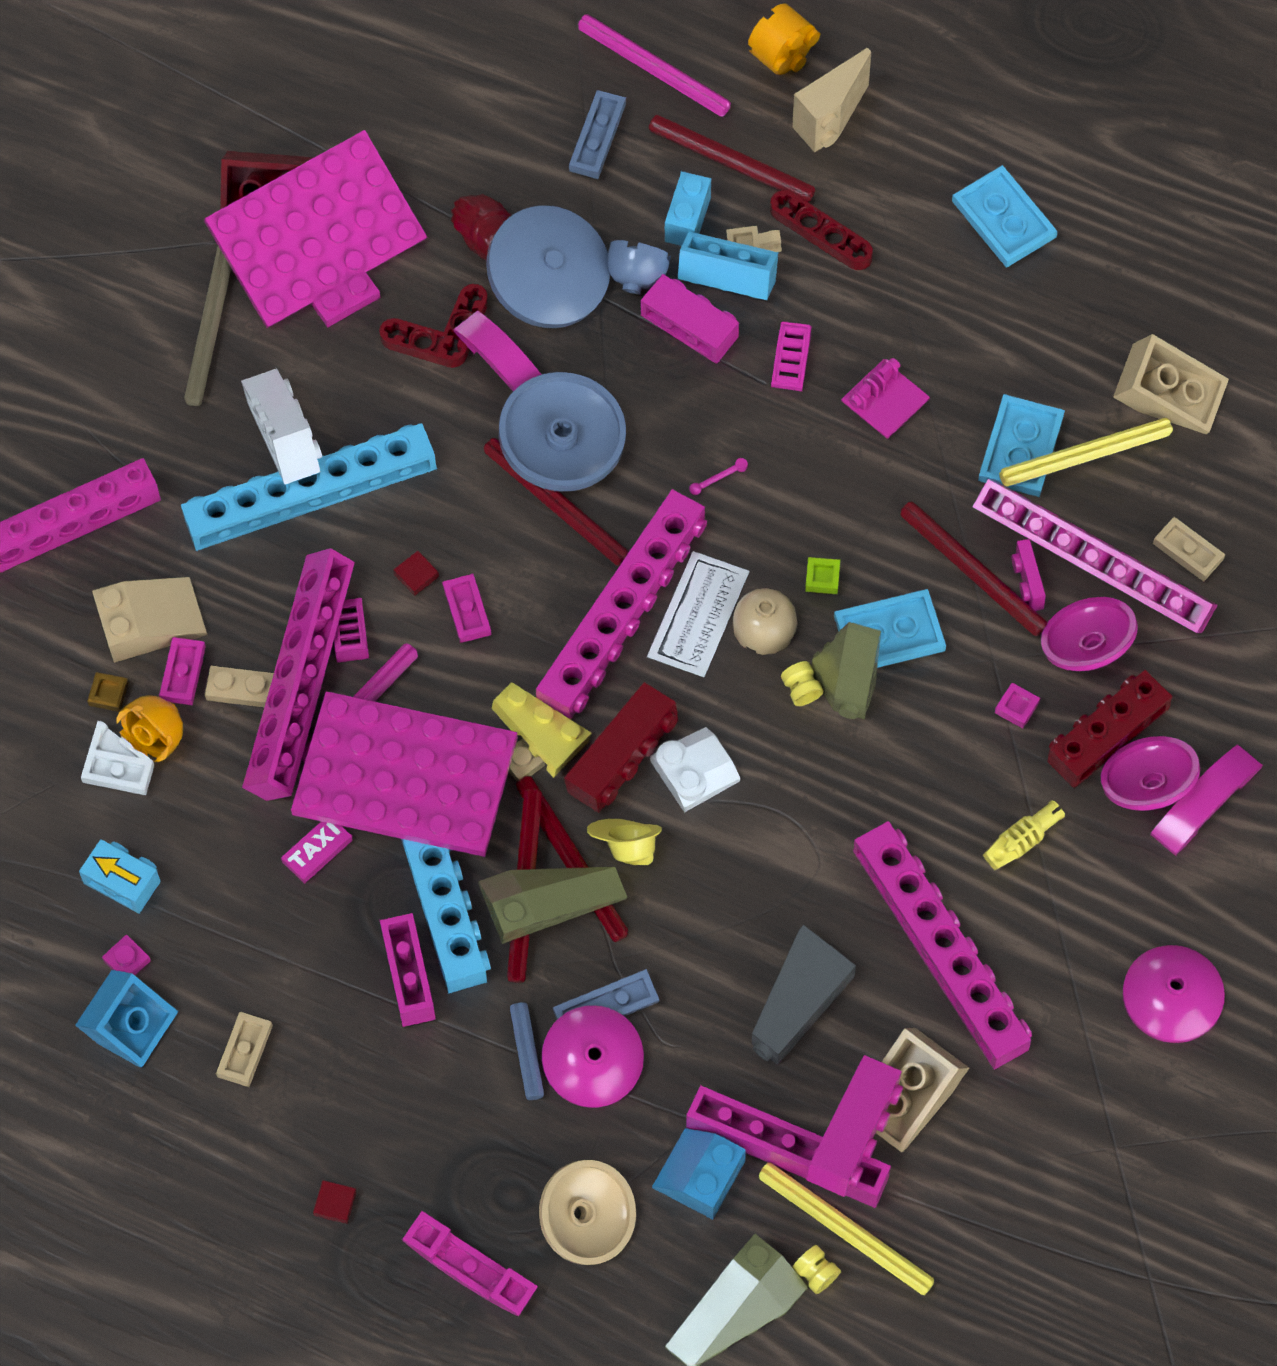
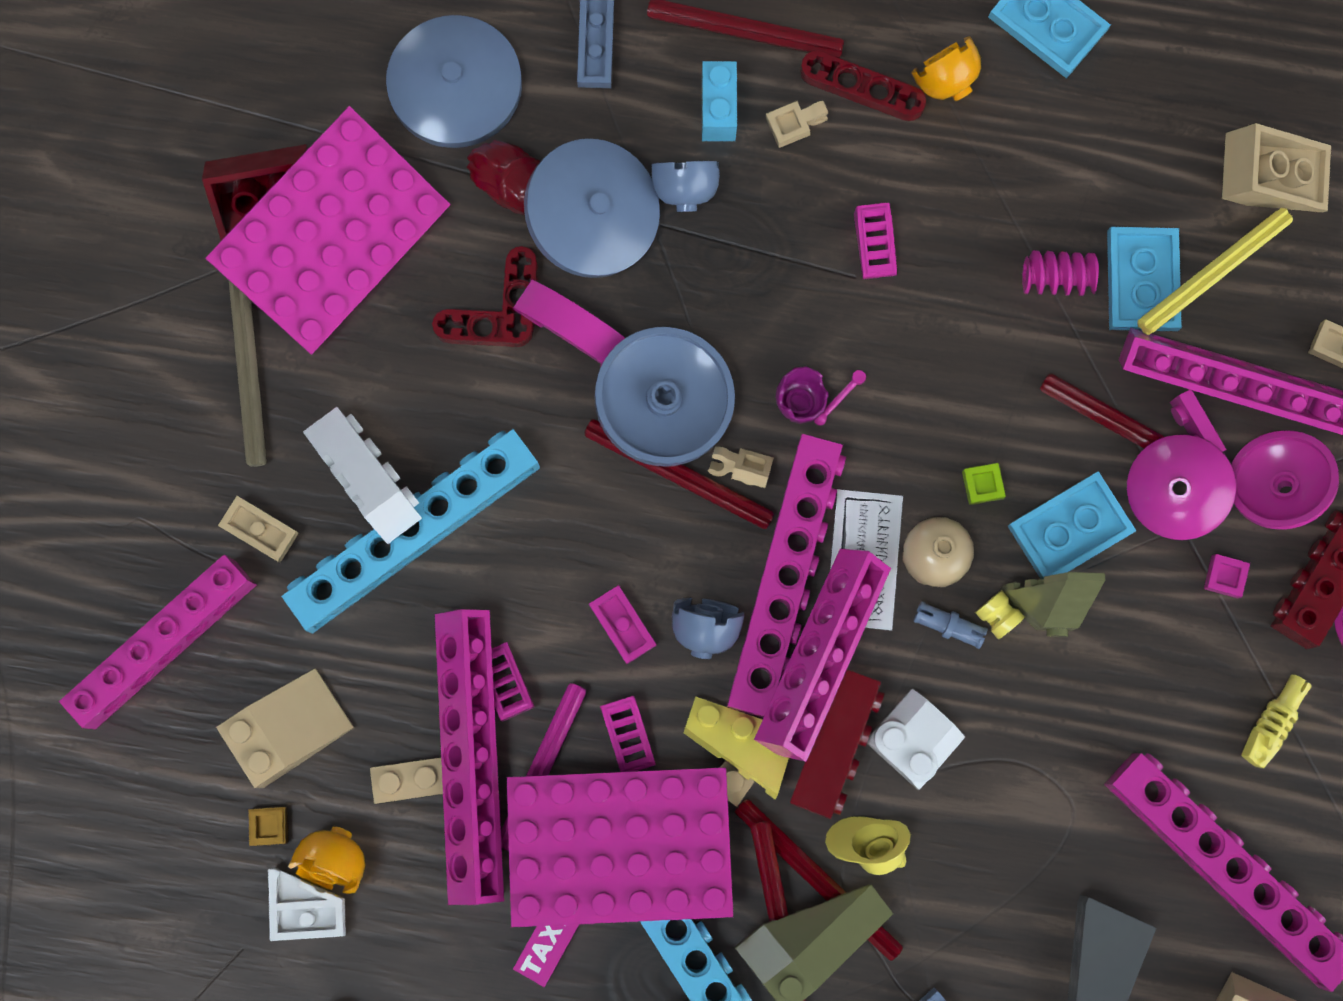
camera: 20 degrees left, 15 degrees up
(177, 453) = (258, 529): none -> tan plate
(182, 671) = (341, 782): dark pink plate -> none
(345, 298) = (384, 298): dark pink plate -> none
(416, 573) = (555, 597): dark red tile -> none
(442, 677) = (619, 706): none -> dark pink slope
(463, 141) = (454, 81): none -> sand blue dish
(537, 625) = (706, 626): none -> sand blue cylinder
(618, 509) = (746, 466): none -> tan plate
(631, 666) = (822, 654): none -> dark pink brick
(683, 461) = (801, 395): none -> magenta hair
(690, 318) = (758, 225): dark pink brick -> none
(727, 265) = (782, 156): medium azure brick -> none
(756, 683) = (950, 625): none -> sand blue pin
(885, 398) = (986, 261): dark pink hinge -> none
(899, 233) = (950, 71): none -> light orange cylinder
(944, 420) = (1060, 271): none -> dark pink piece
(1009, 632) = (1208, 483): none -> dark pink dish

